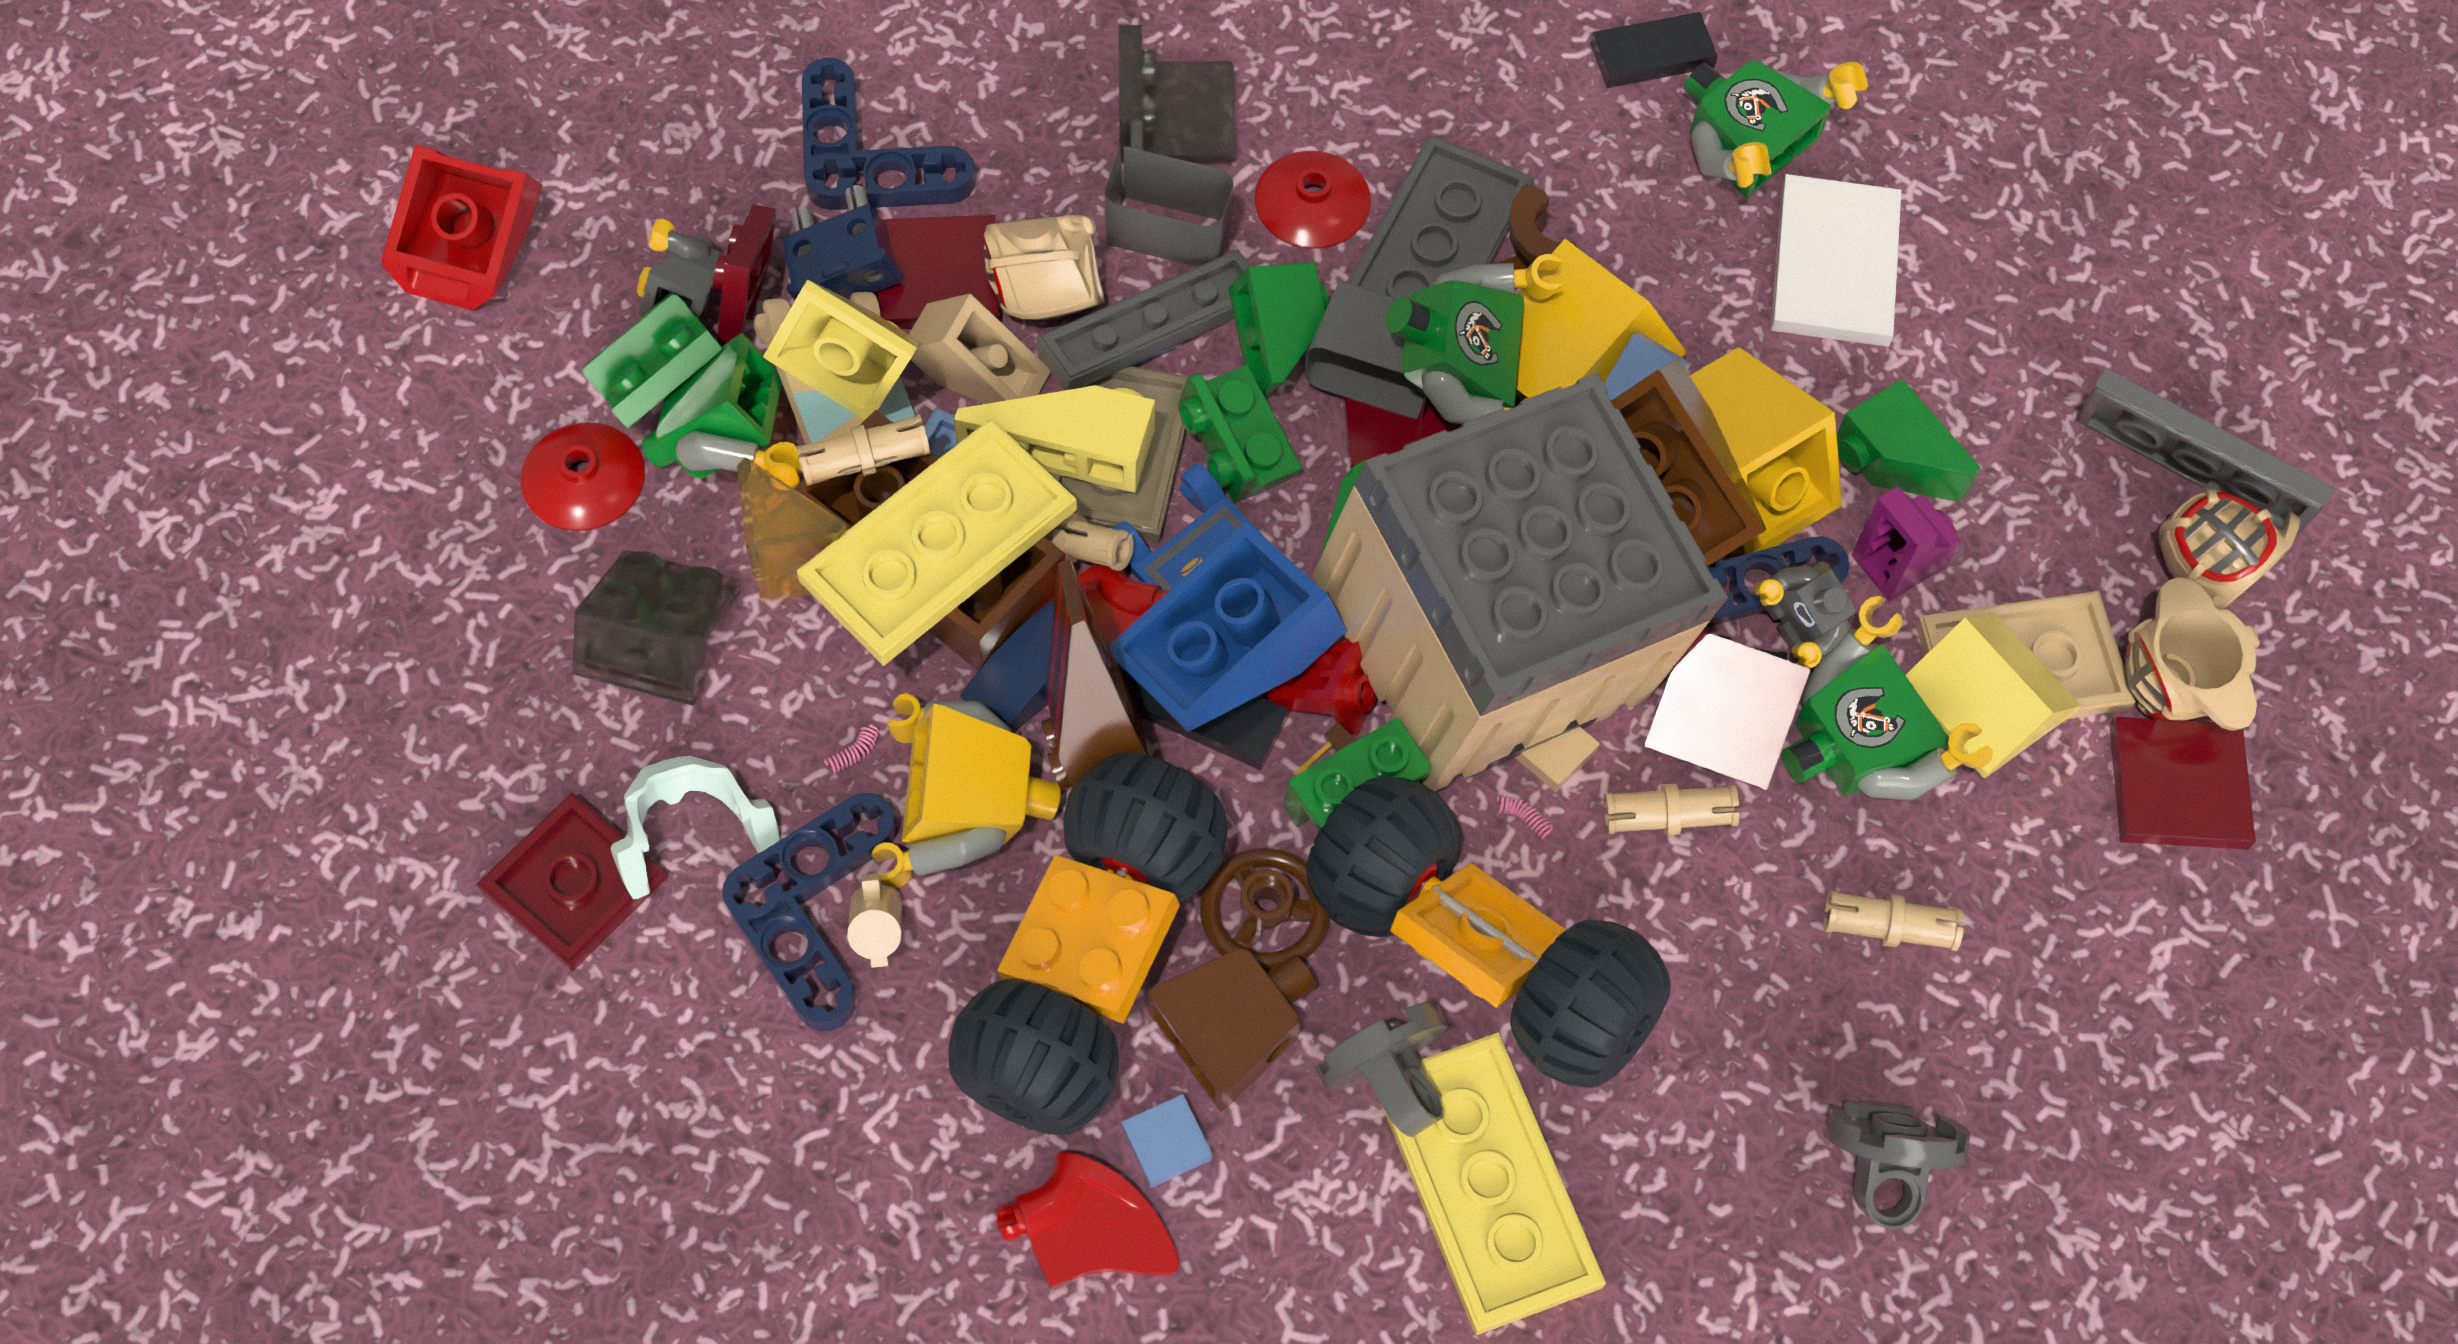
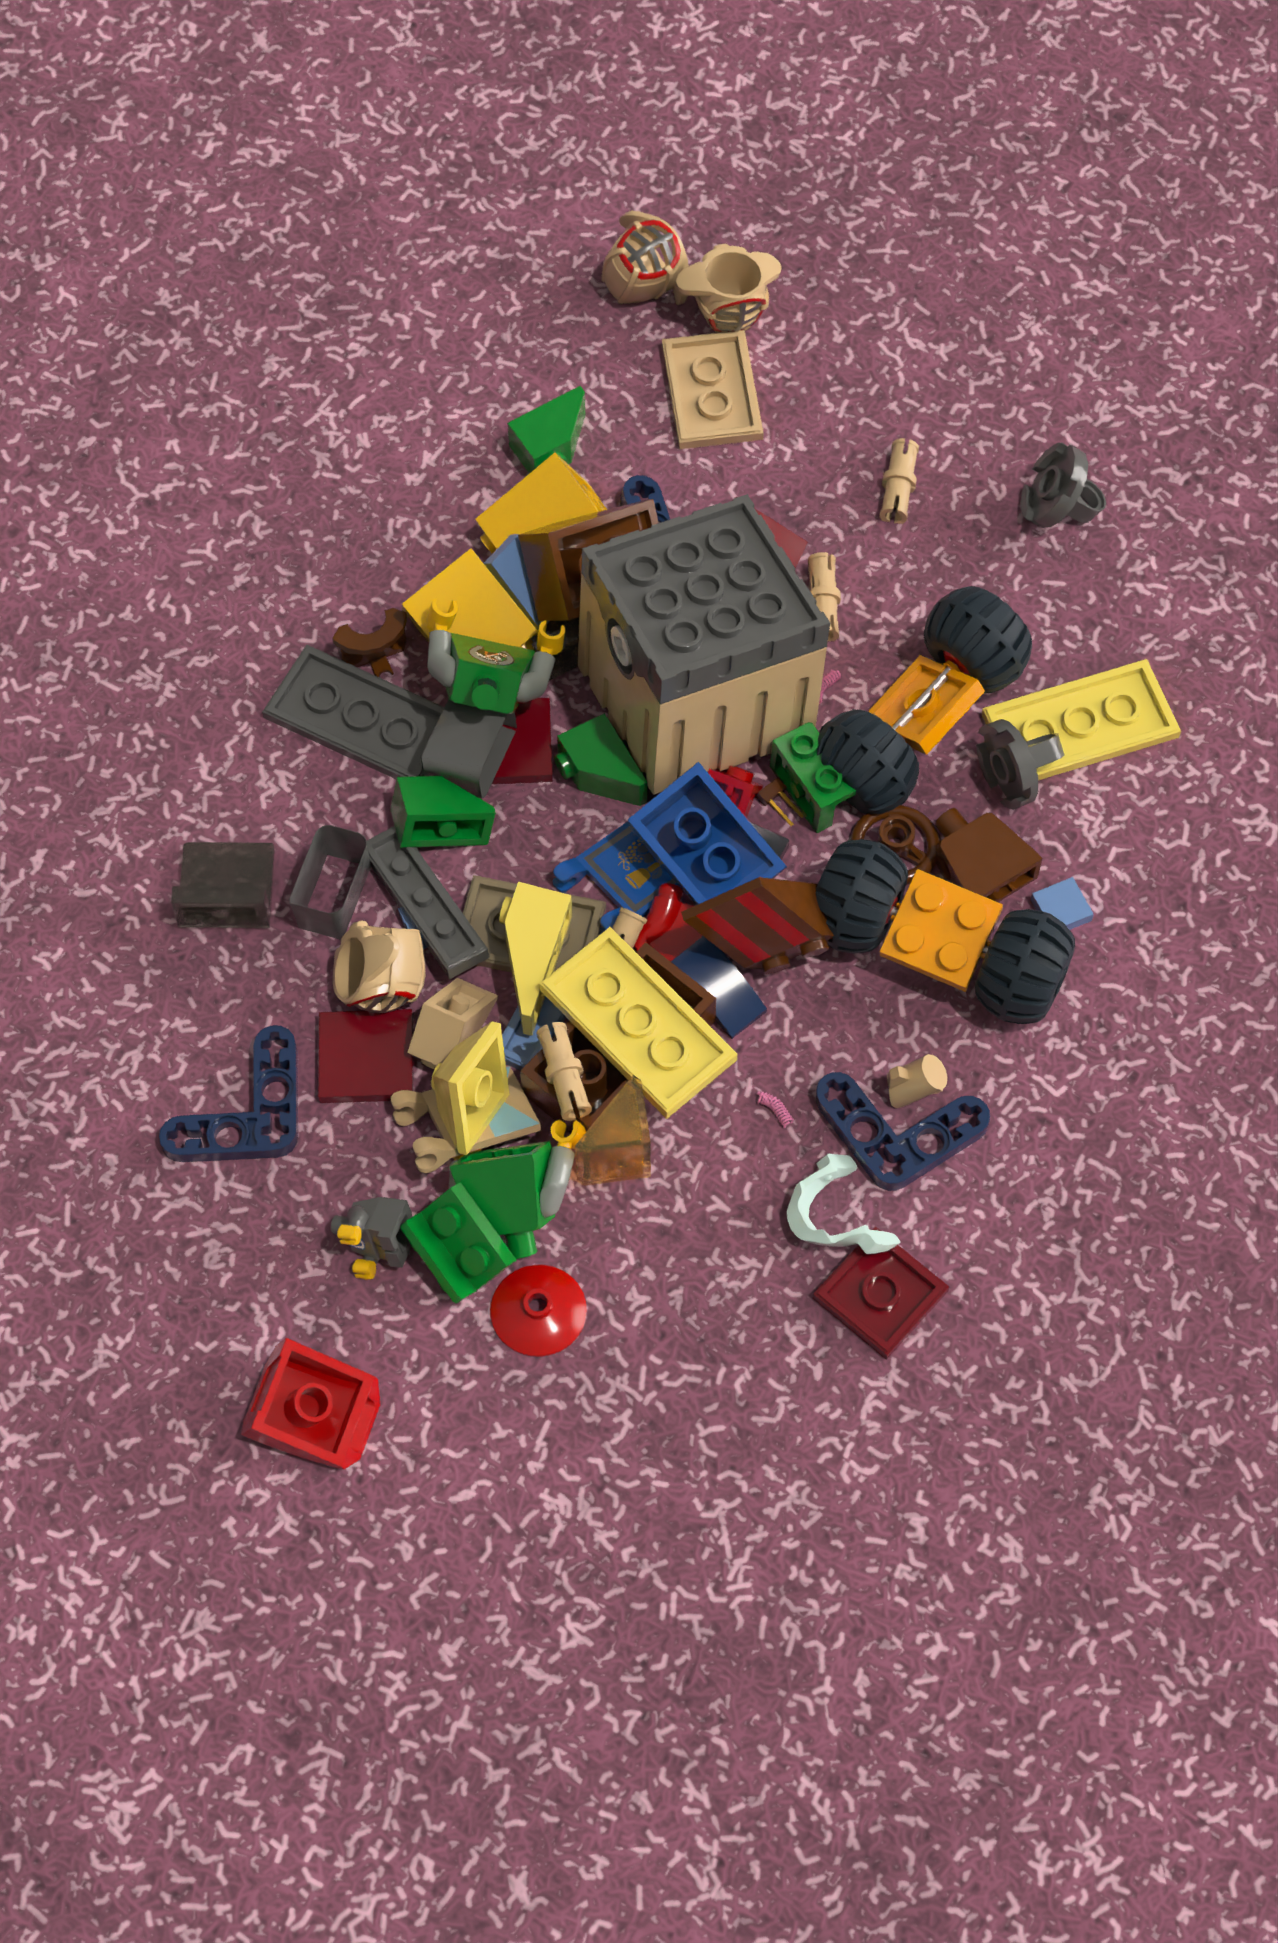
camera: 85 degrees left, 0 degrees up
(651, 625) = (676, 1240): clear smoke bracket -> none
(743, 271) = (373, 1177): dark red wing -> none
(842, 252) = (364, 1116): dark blue piece -> none
(963, 787) = (814, 1021): yellow torso -> none
(1088, 1224) = (1121, 955): red arm -> none
(1238, 432) = (525, 845): green bracket -> none
(1310, 217) = (306, 813): red dish -> none
(1653, 49) = (191, 560): black tile -> none
(1762, 118) = (273, 493): torso -> none
(1811, 609) = (685, 491): dark grey piece -> none
(1836, 260) = (387, 462): white tile -> none
(1872, 725) = (770, 469): torso -> none
(1904, 543) = (633, 438): magenta arch -> none
(1994, 681) = (745, 404): light yellow slope -> none
(2181, 783) = (802, 316): dark red tile -> none
(2200, 450) = (572, 260): dark grey tile -> none

